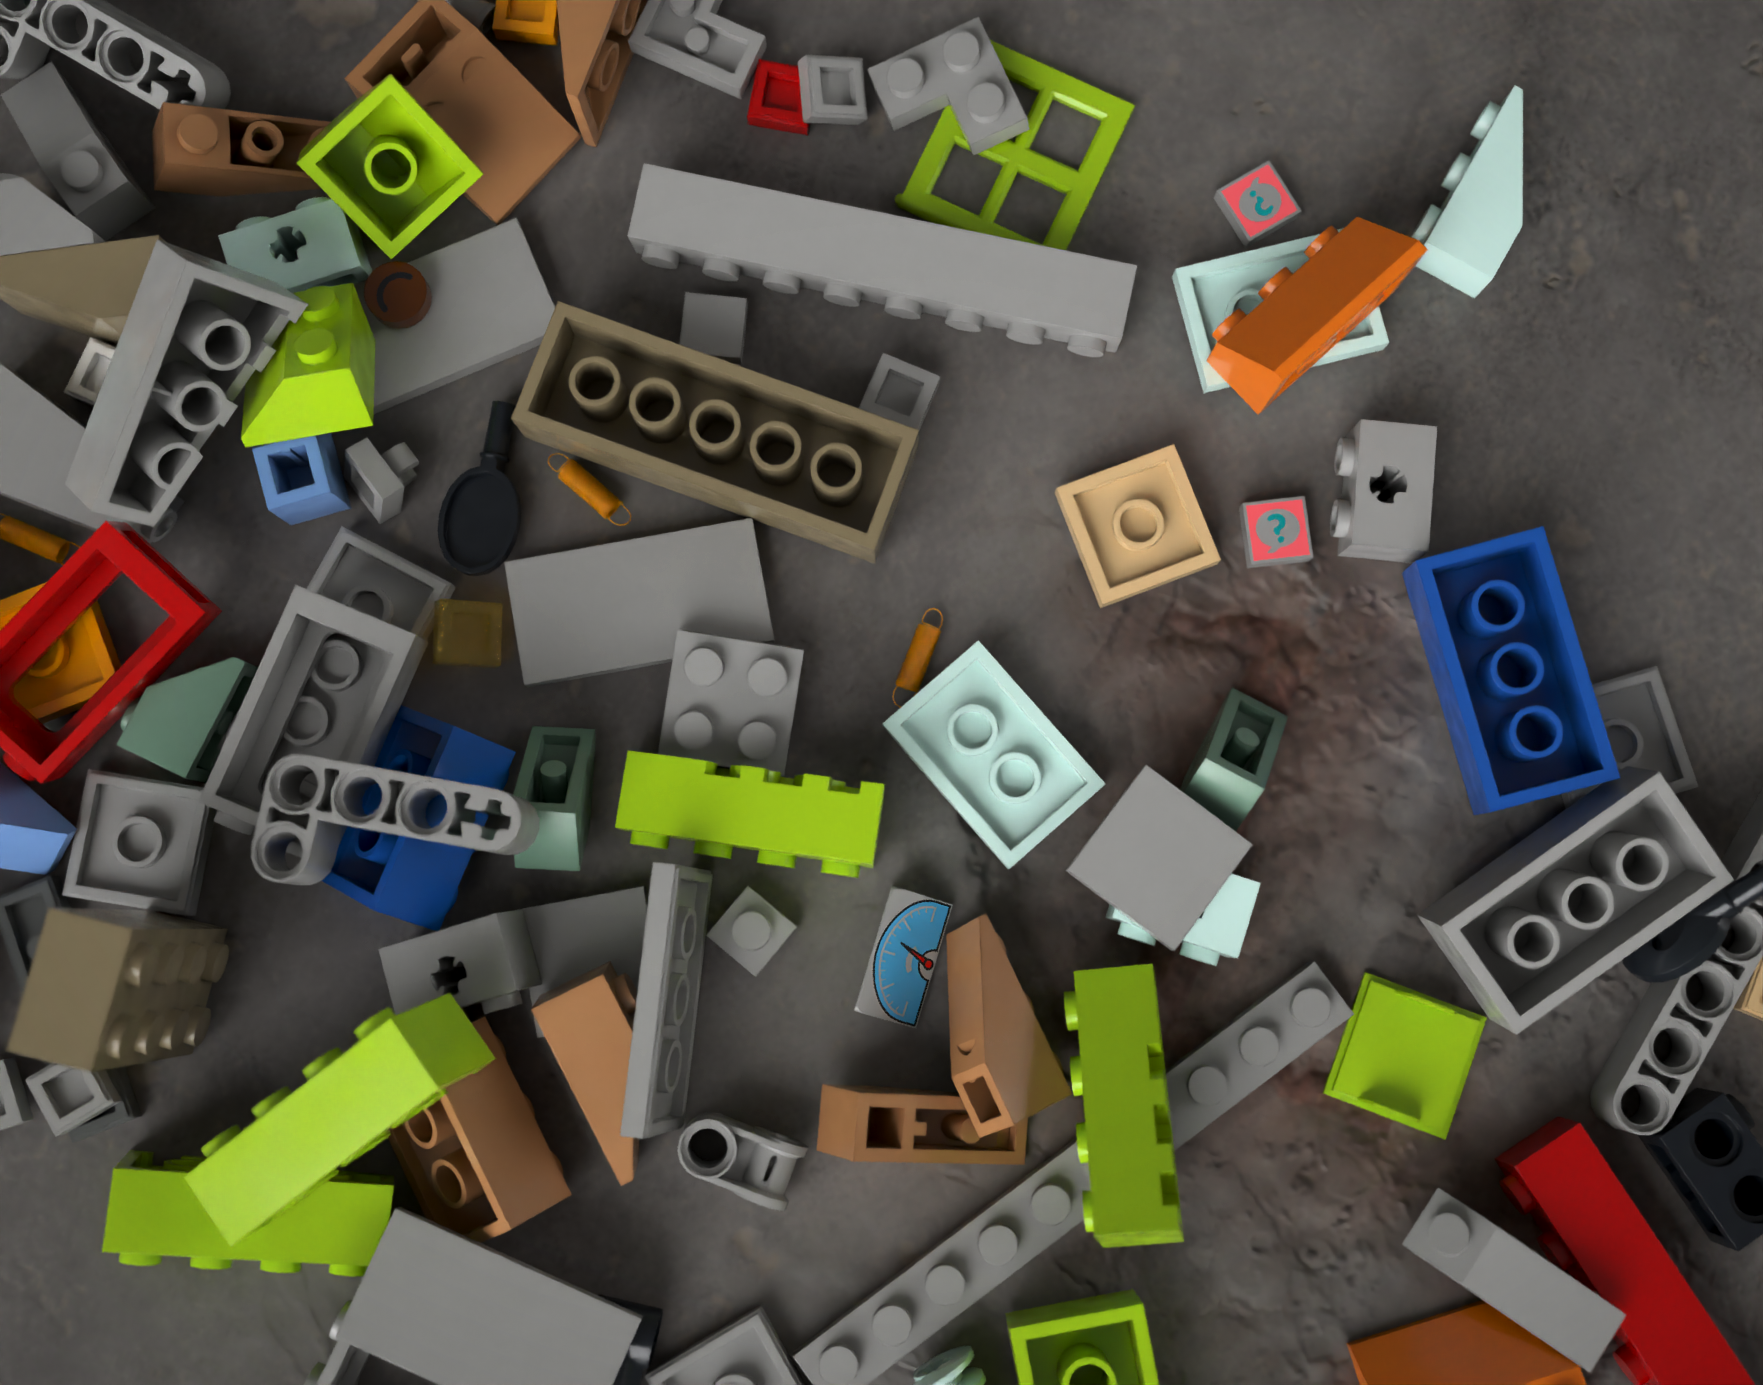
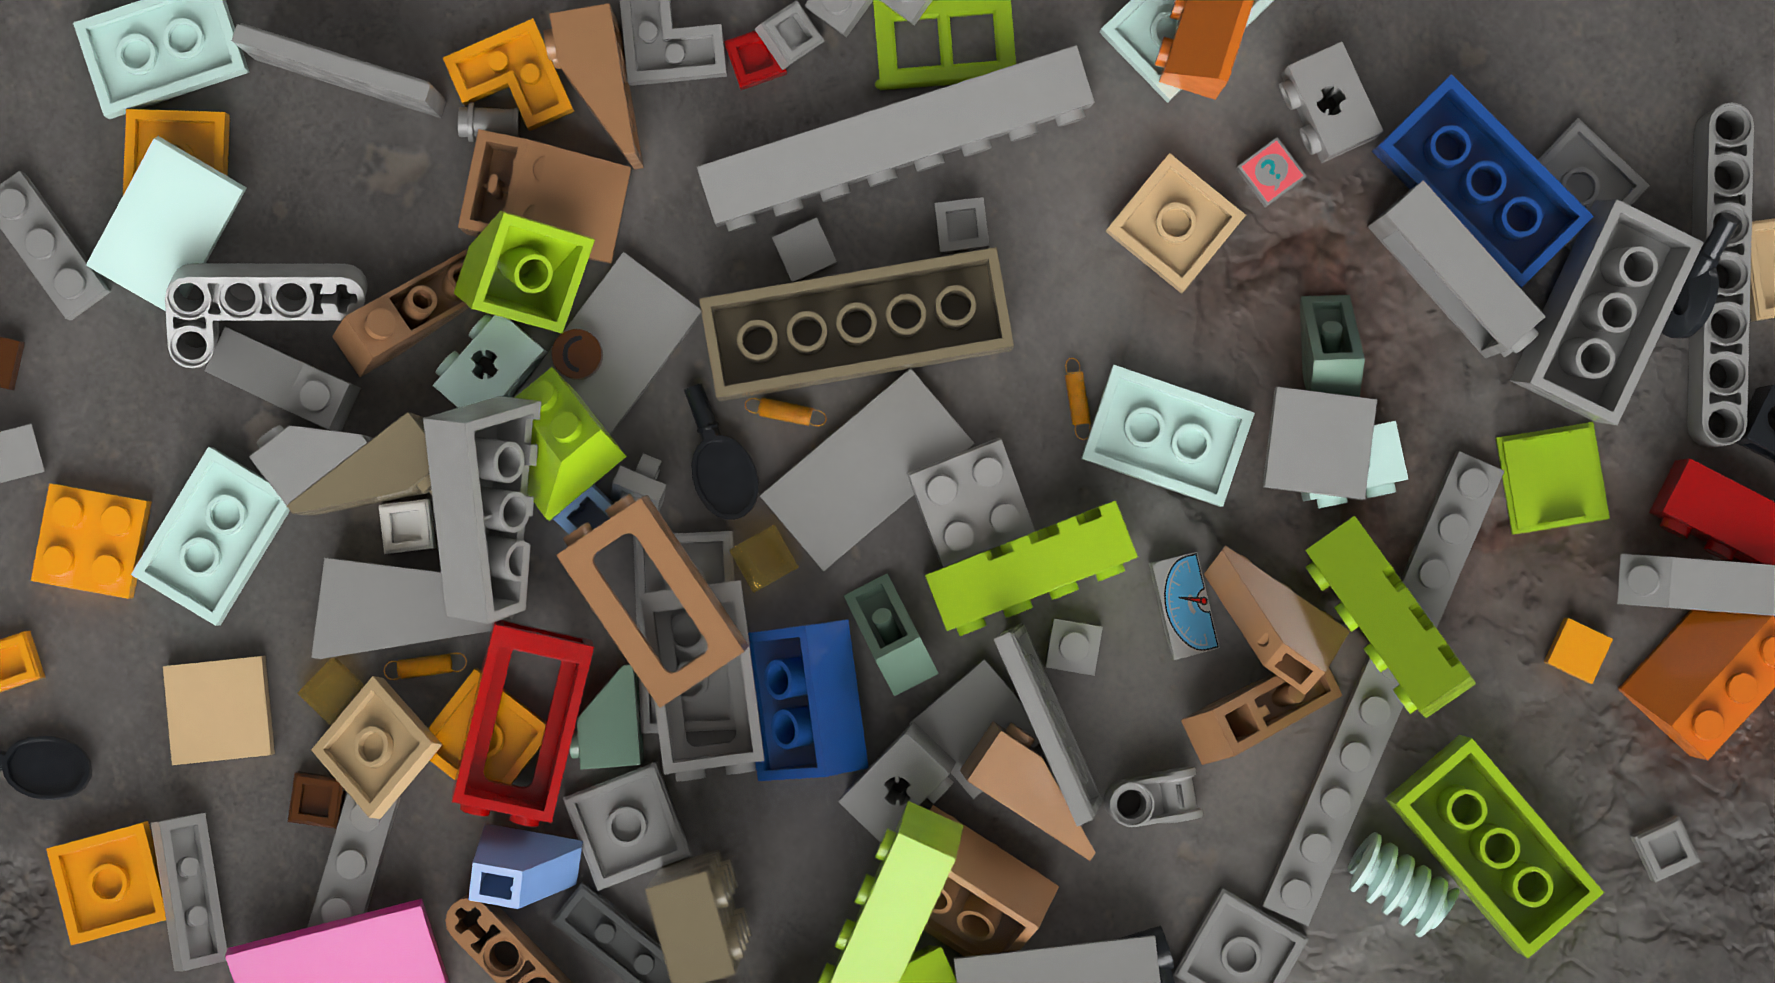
camera: 35 degrees left, 5 degrees up
(345, 593) = (682, 576): none -> medium nougat piece
(401, 813) = (811, 706): light grey beam -> none
(1325, 1271) = (1578, 650): none -> light orange tile
(1425, 755) = (1457, 273): none -> light grey piece

